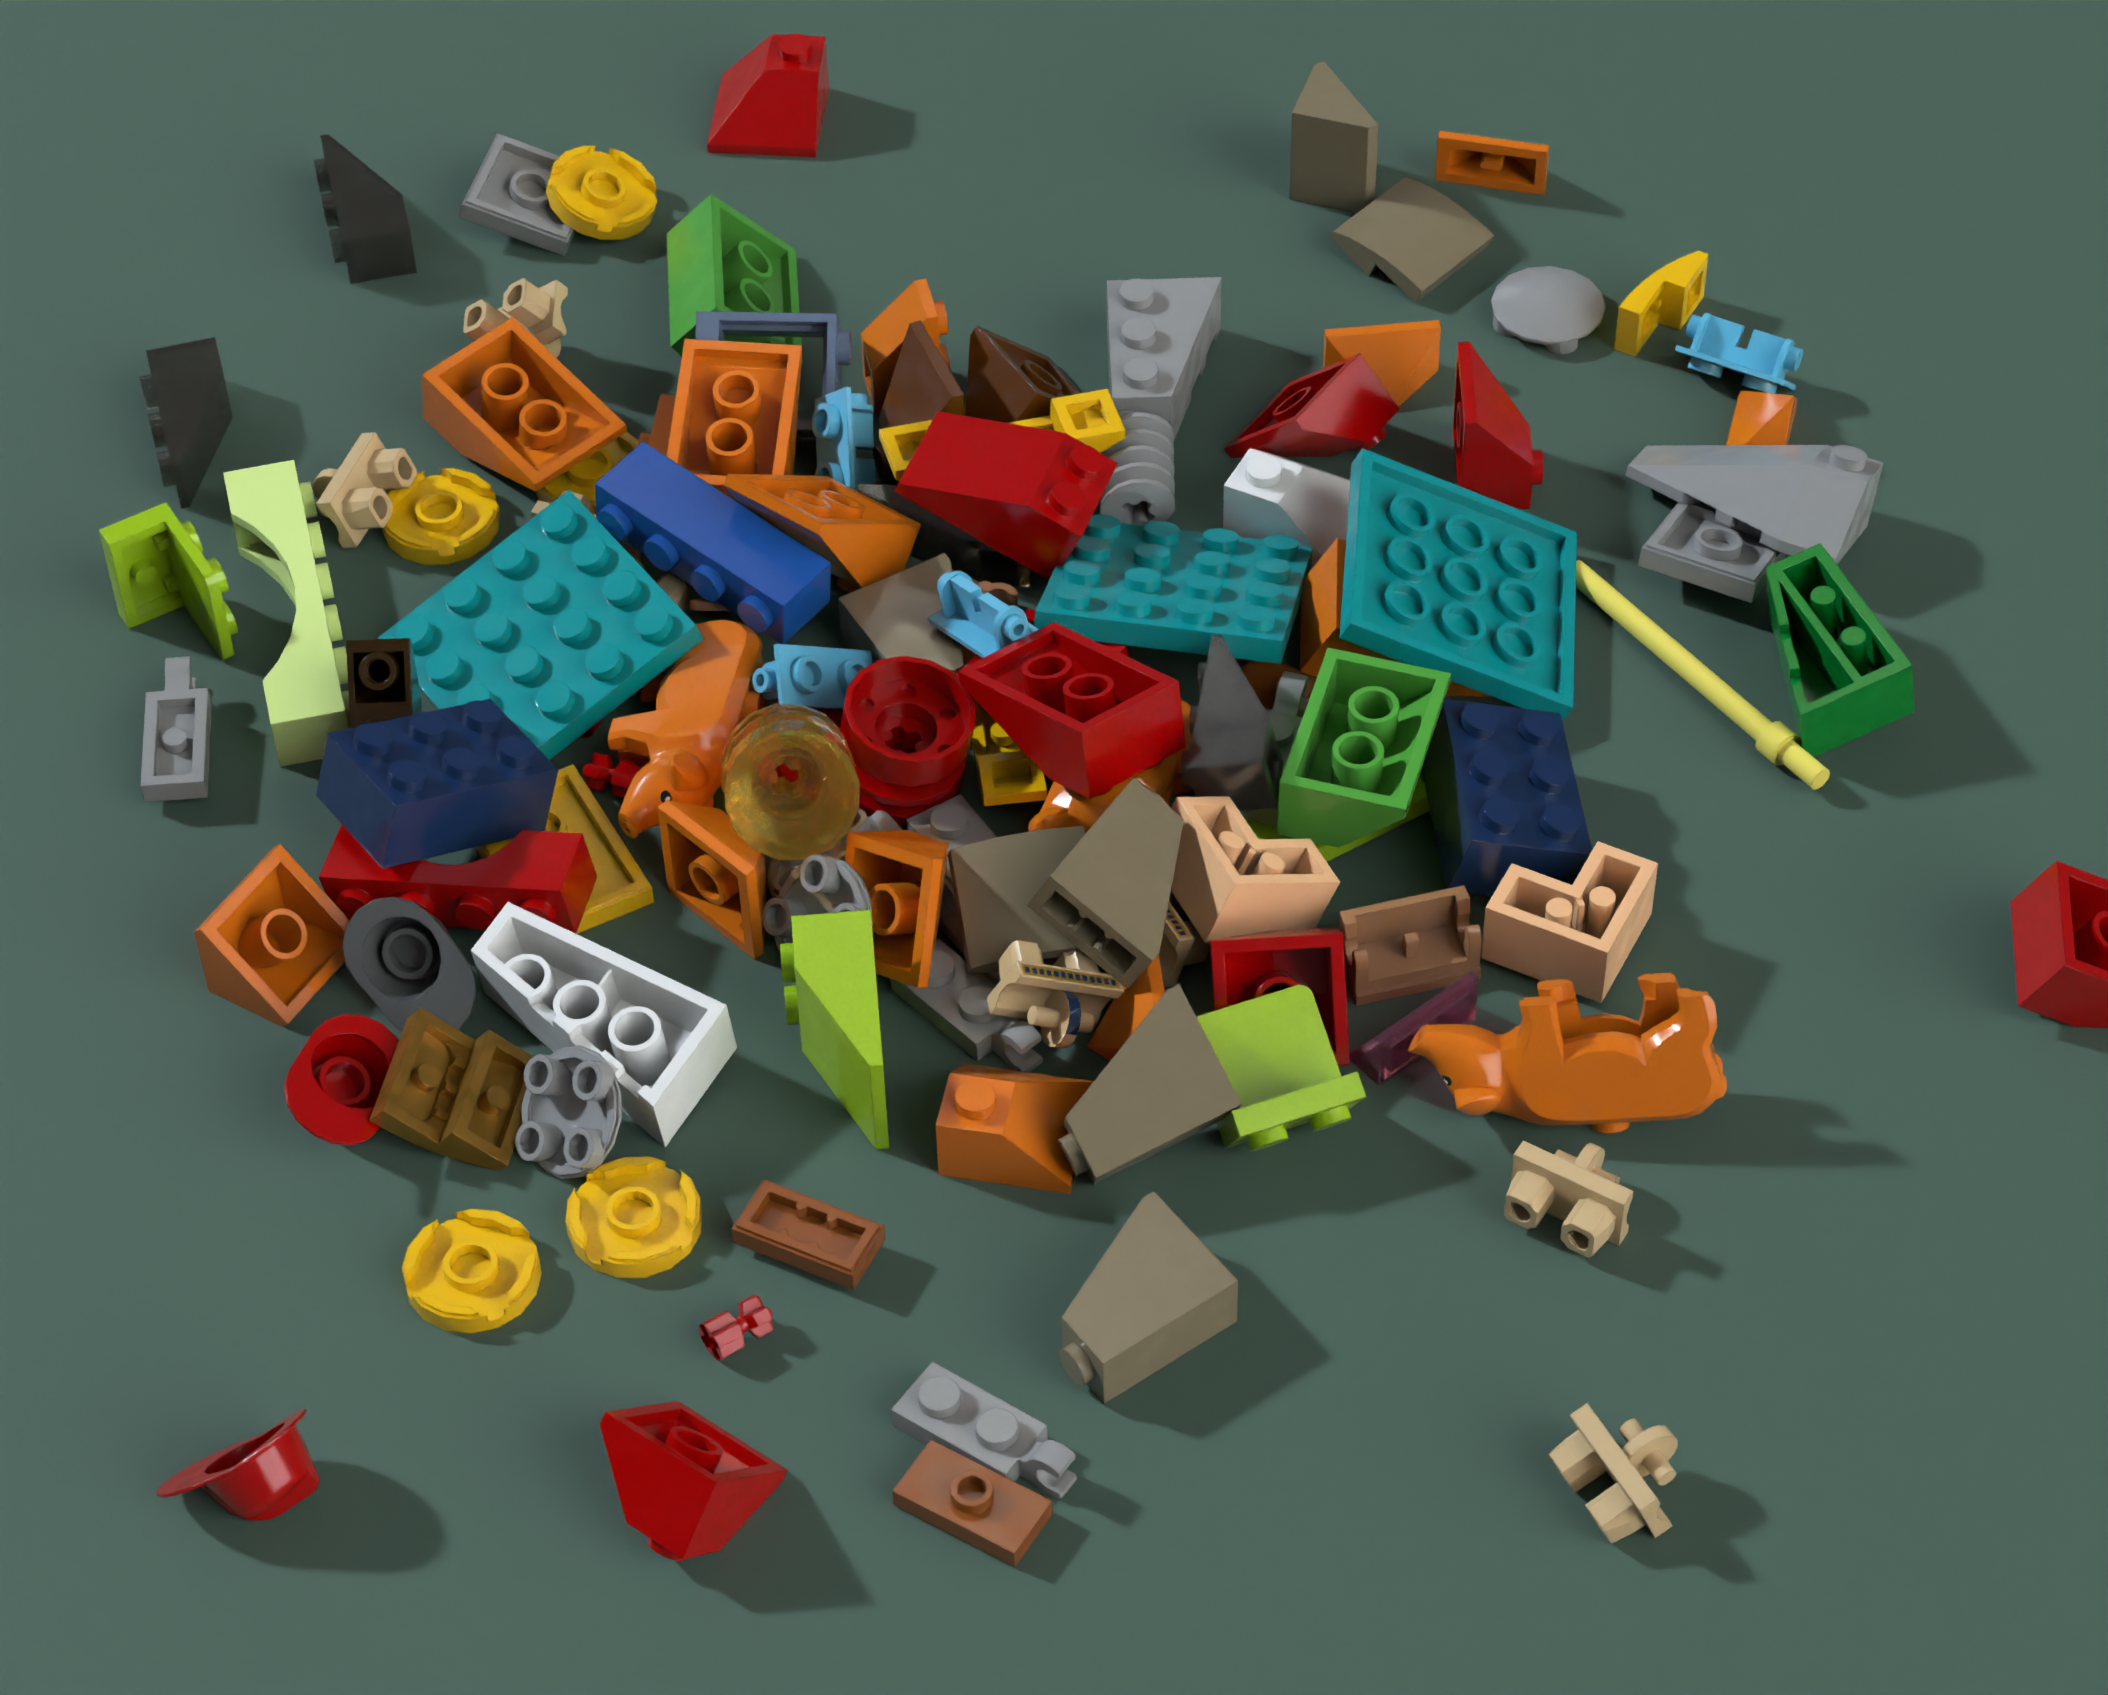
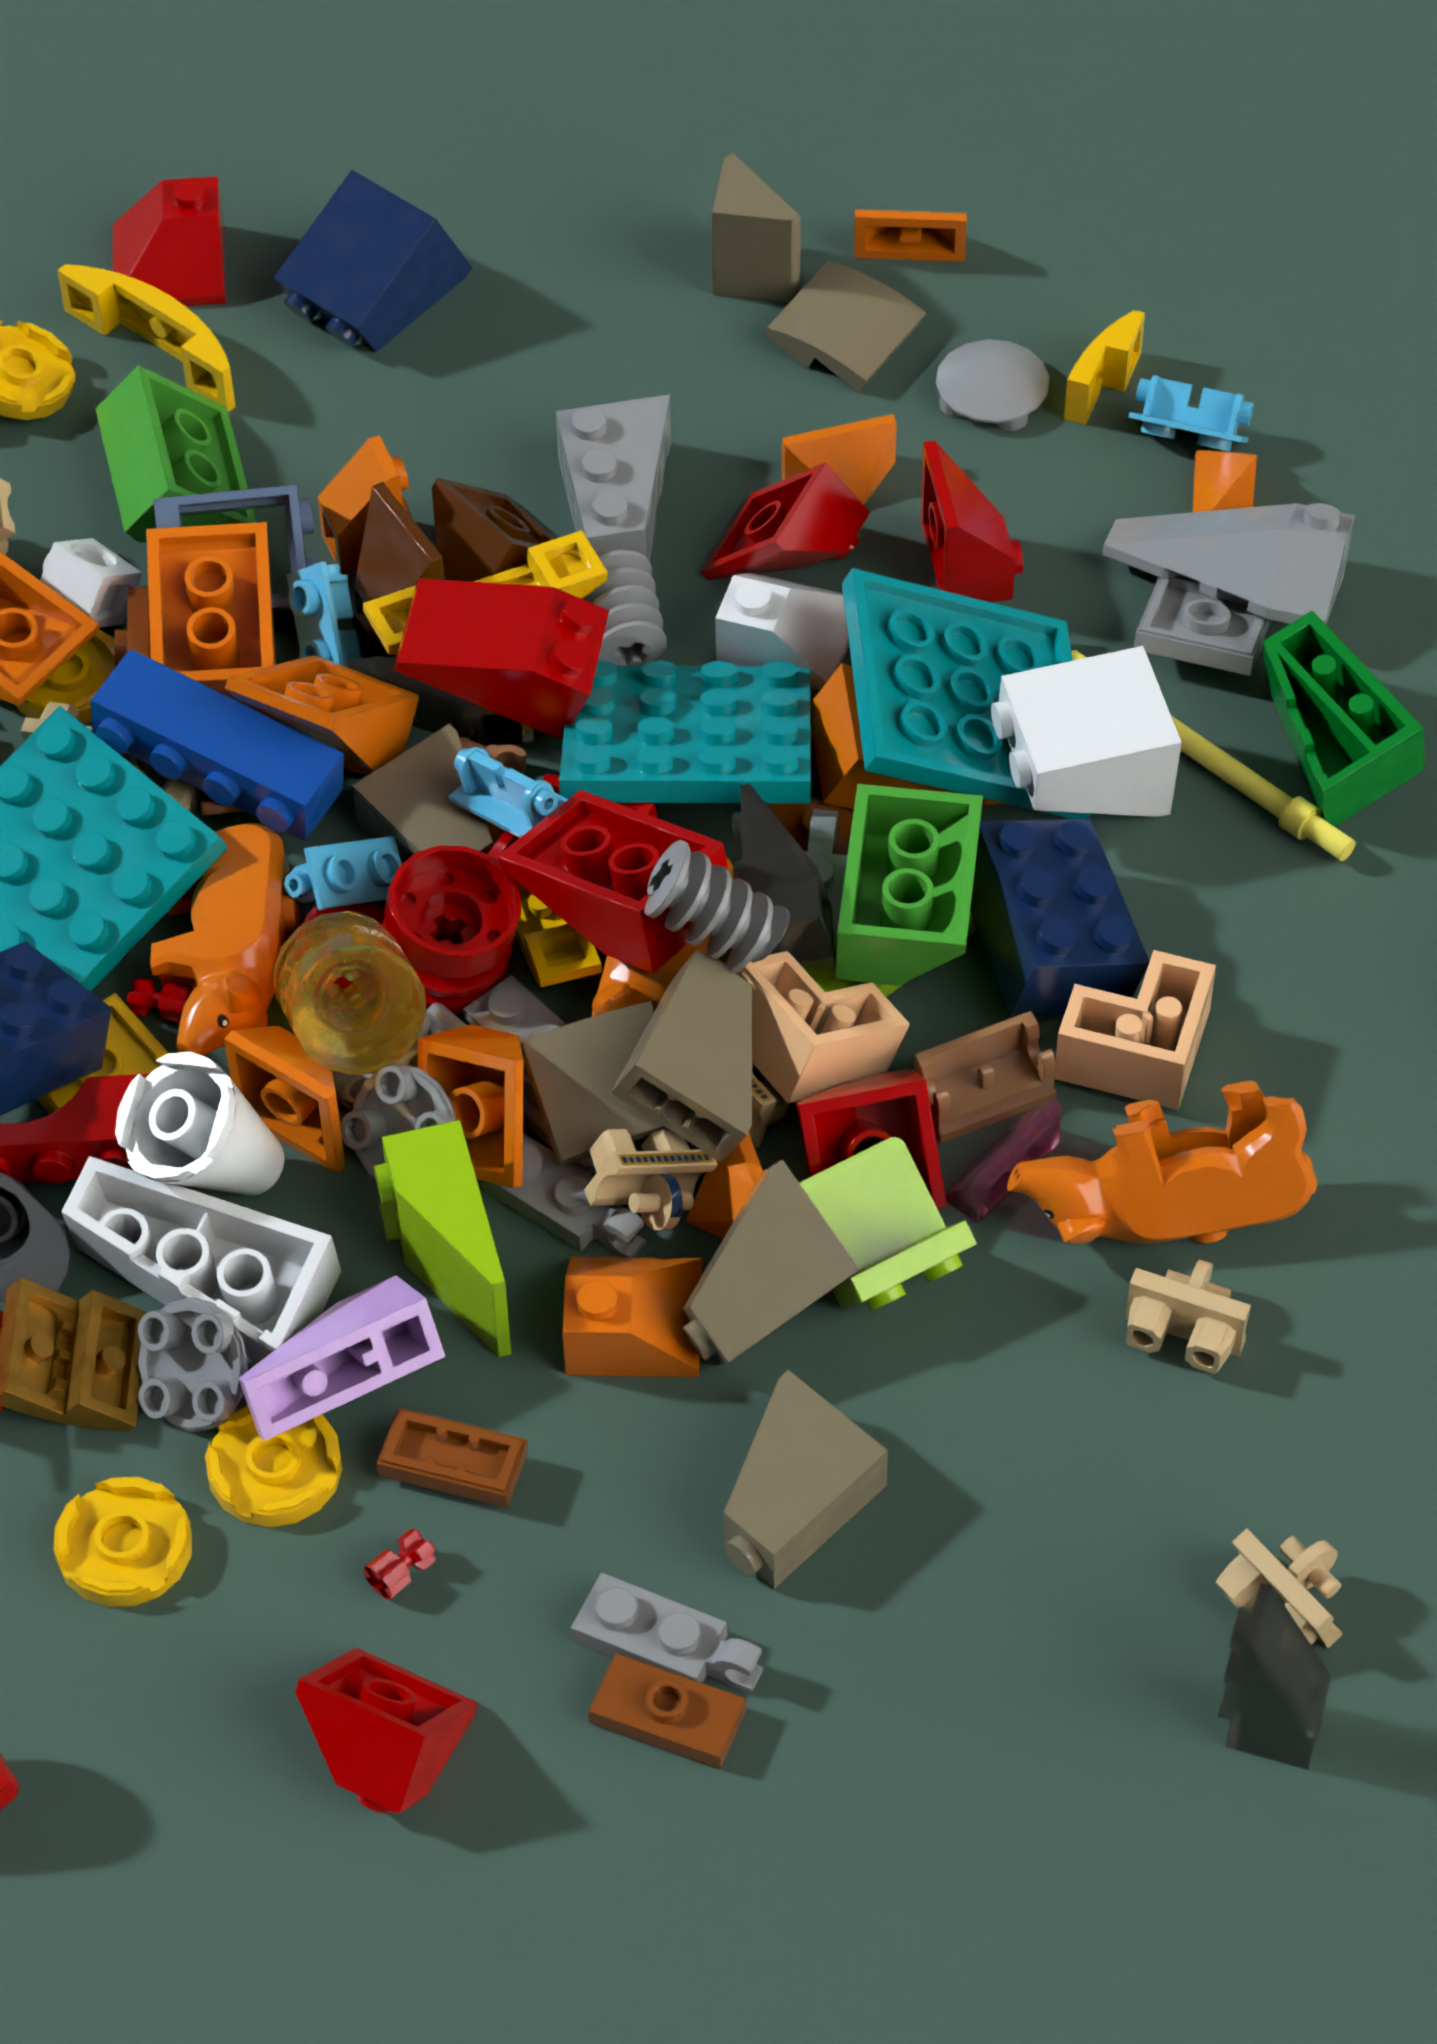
camera: 10 degrees left, 5 degrees up
(617, 890) = (197, 1129): none -> white cone
(627, 384) = (91, 579): none -> white brick
(705, 139) = (110, 298): none -> yellow slope
(715, 1123) = (342, 1356): none -> lavender slope
(958, 132) = (370, 265): none -> dark blue slope
(1155, 736) = (714, 907): none -> light grey piece
(1574, 635) = (1091, 735): none -> white slope
(1587, 1555) = (1273, 1685): none -> clear smoke slope

